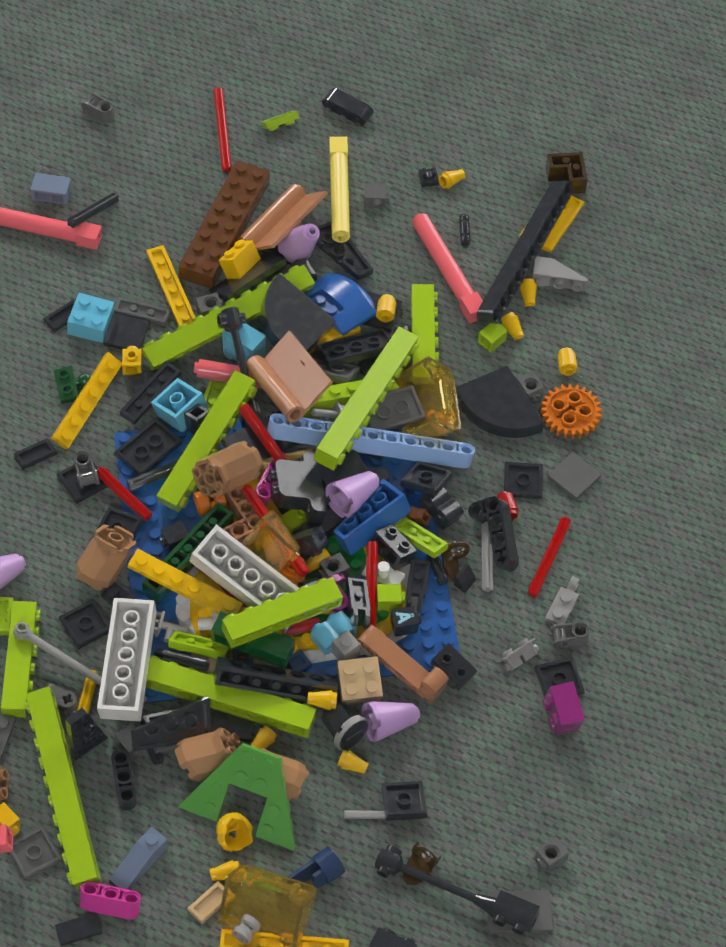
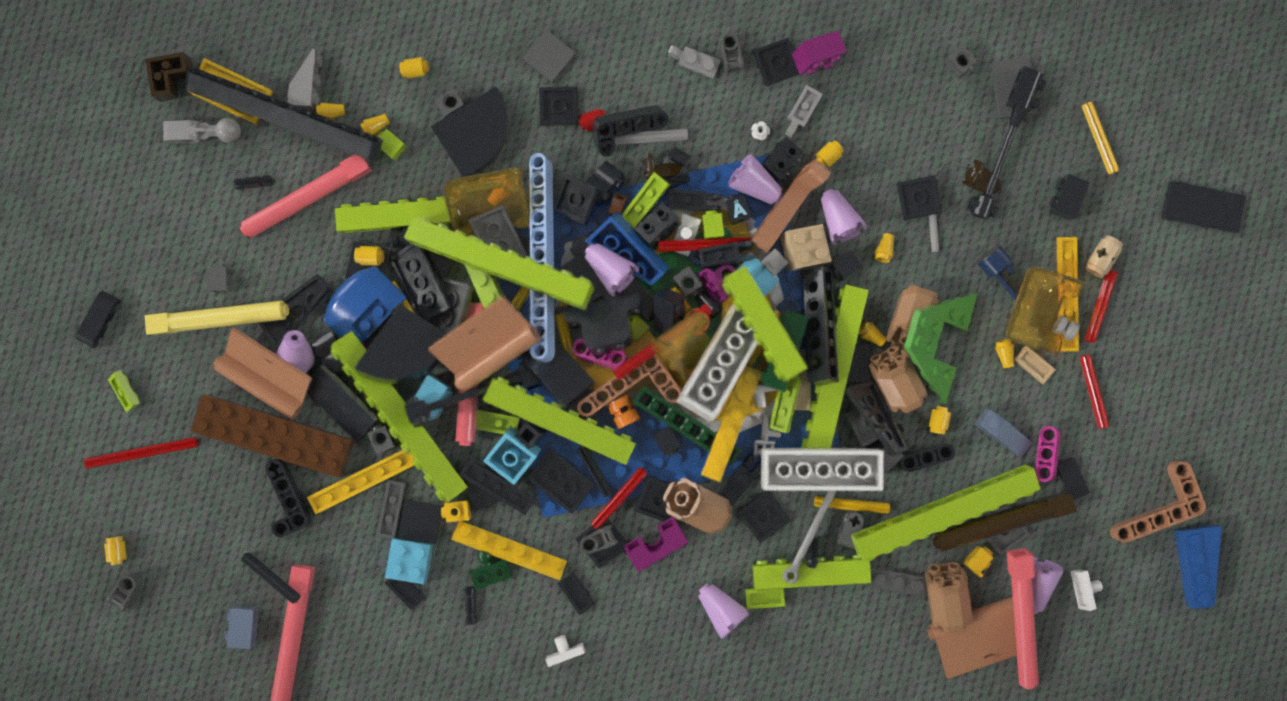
camera: 95 degrees left, 30 degrees up
(39, 366) = (470, 605): none -> black axle
(41, 658) = (812, 554): none -> black axle
(43, 847) = (1048, 508): none -> dark brown brick
(64, 509) = (645, 554): none -> magenta arch
(82, 733) = (900, 501): black wing -> none
(136, 103) = (115, 550): none -> yellow brick
(161, 797) = (939, 420): none -> yellow brick
(164, 232) = (284, 496): none -> black beam
(182, 659) = (802, 418): black axle -> none
(227, 469) = (603, 395): medium nougat brick -> none
(238, 823) = (976, 352): yellow hair -> none
(239, 259) = (321, 414): yellow brick -> none
(262, 433) = (555, 362): red axle -> none
(323, 699) = (836, 279): yellow cone -> none
(326, 414) = (511, 294): light grey arm -> none
(352, 732) = (862, 250): tile -> none
(428, 177) = (186, 225): black tile -> none
(432, 637) = (755, 181): none -> lavender cone
(450, 178) = (186, 200): yellow cone -> none
(457, 716) = (830, 153): none -> yellow brick
(487, 660) = (760, 135): none -> white plate
(506, 696) = (803, 109): none -> light grey plate
(512, 657) = (748, 95): light grey hinge -> none
(515, 211) = (193, 131): none -> light grey beam
(549, 557) = (644, 77): red axle -> none
(571, 411) = (461, 70): orange gear -> none

